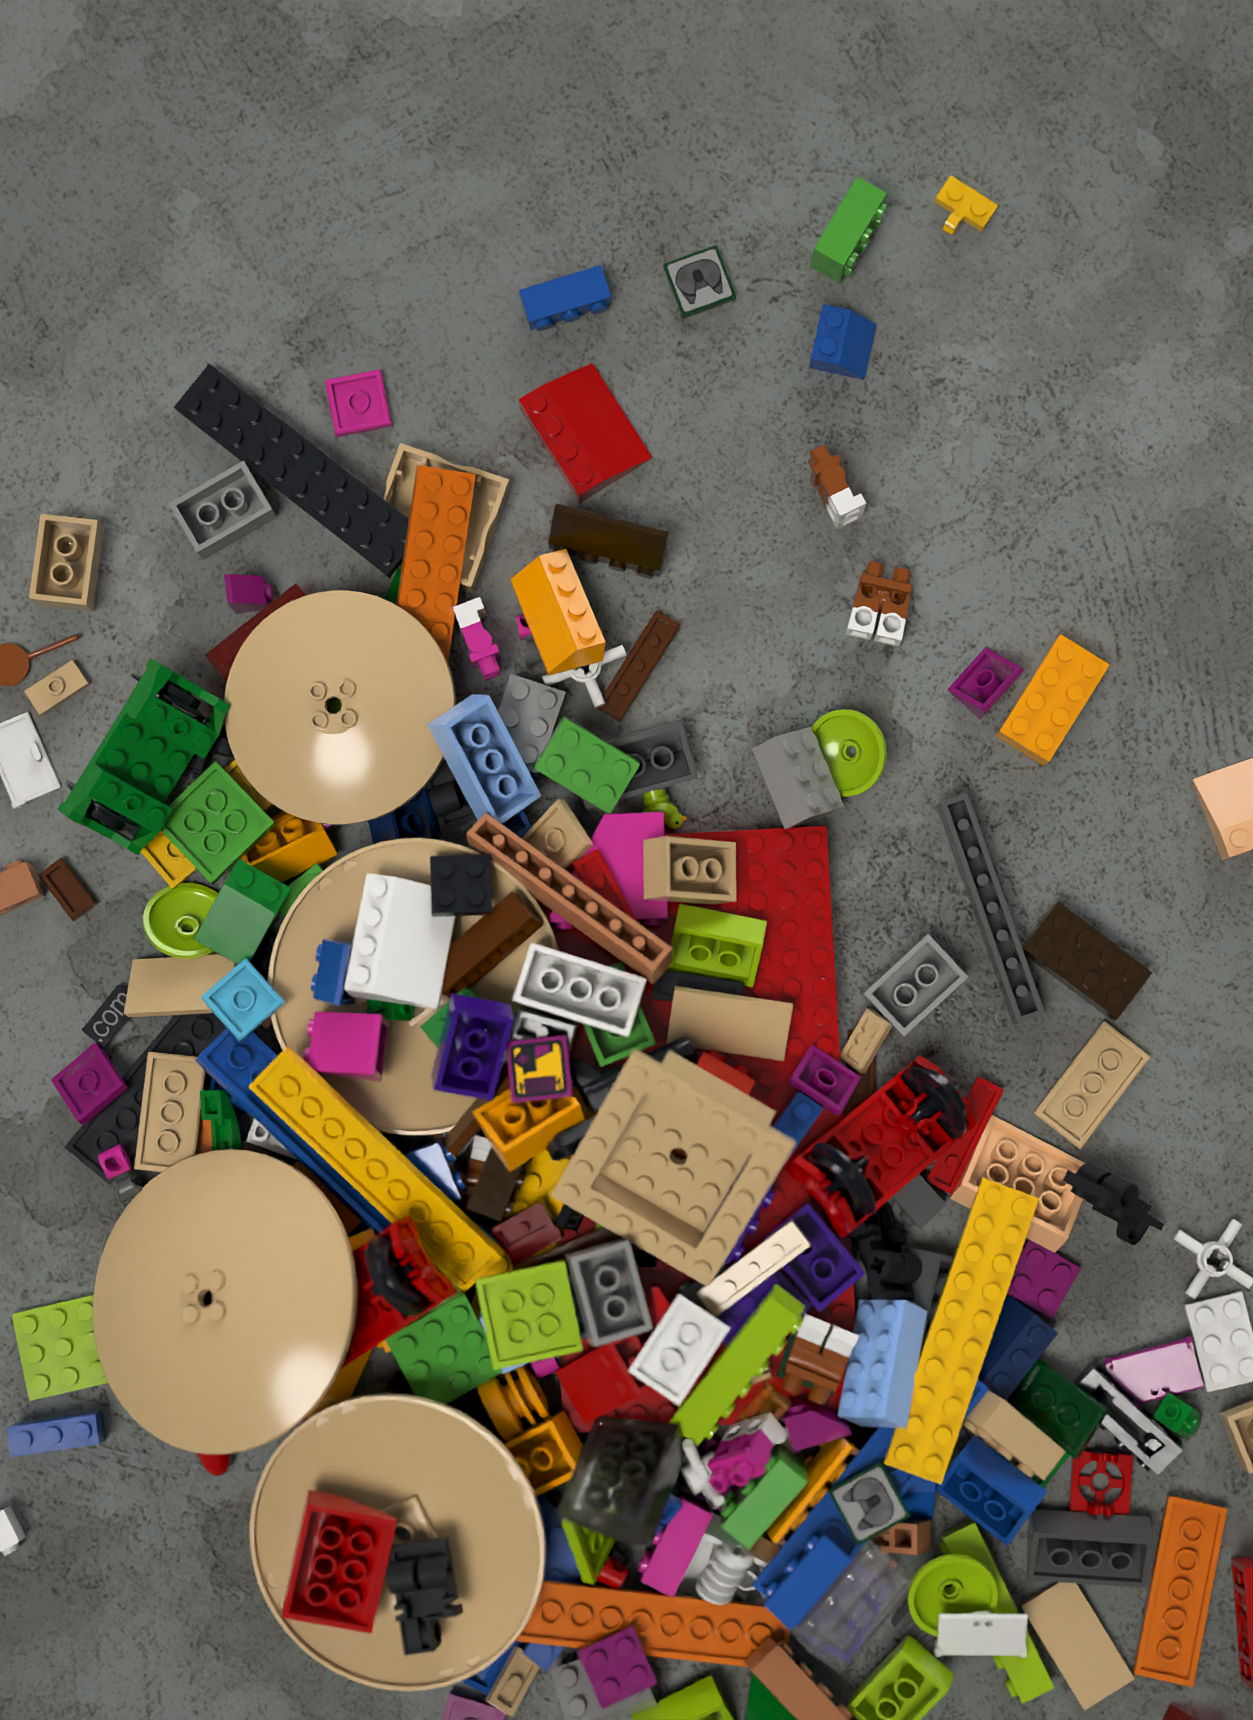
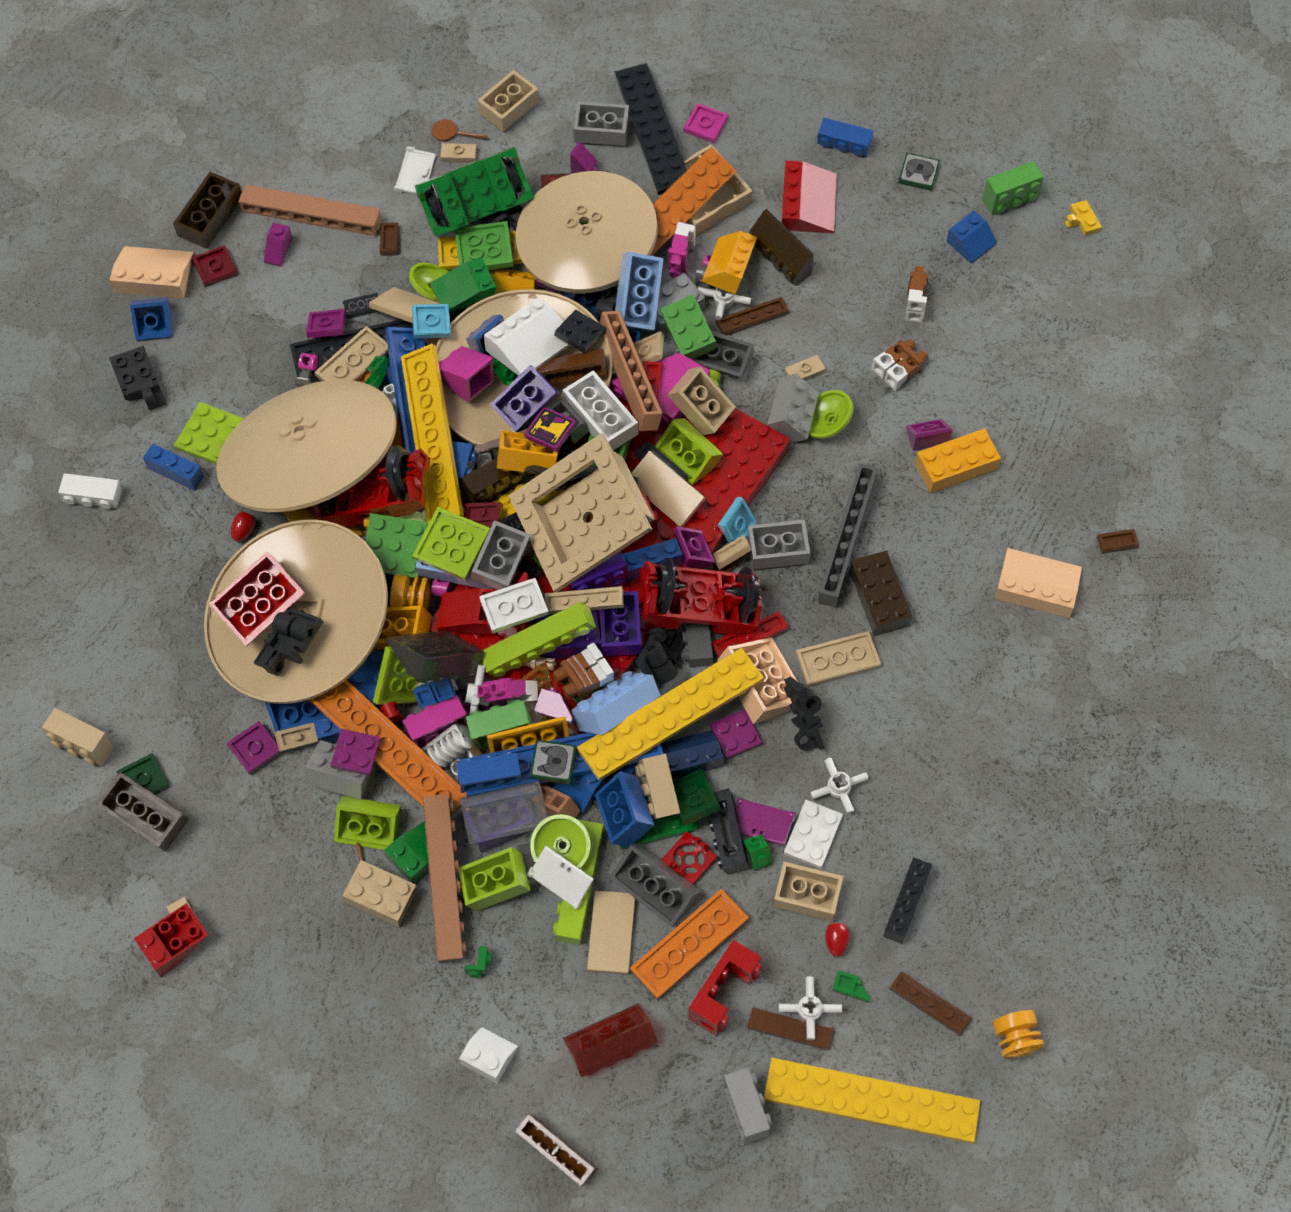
camera: 35 degrees right, 20 degrees down
(763, 699) = (807, 368): none -> tan plate
(843, 994) = (736, 520): none -> medium azure tile

